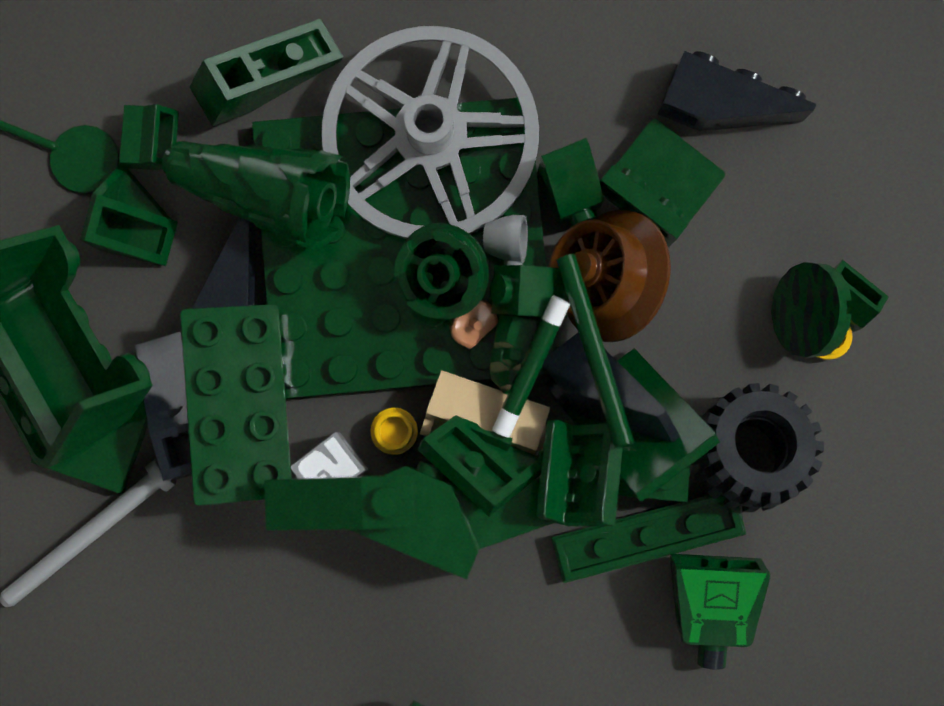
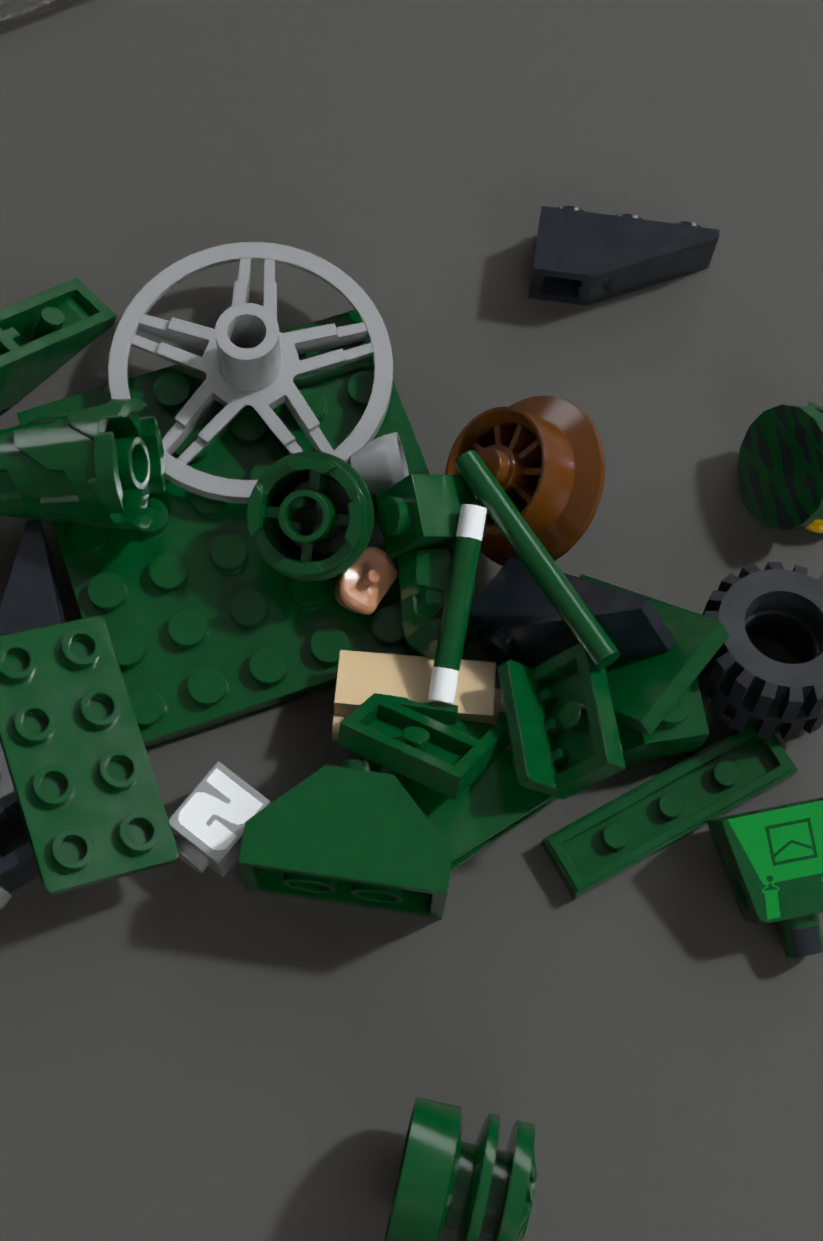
camera: 20 degrees left, 15 degrees down
(341, 503) = (254, 823): dark green slope -> none
(394, 431) = (294, 752): yellow plate -> none
(571, 183) = (442, 382): dark green slope -> none
(662, 180) = (555, 357): dark green bracket -> none

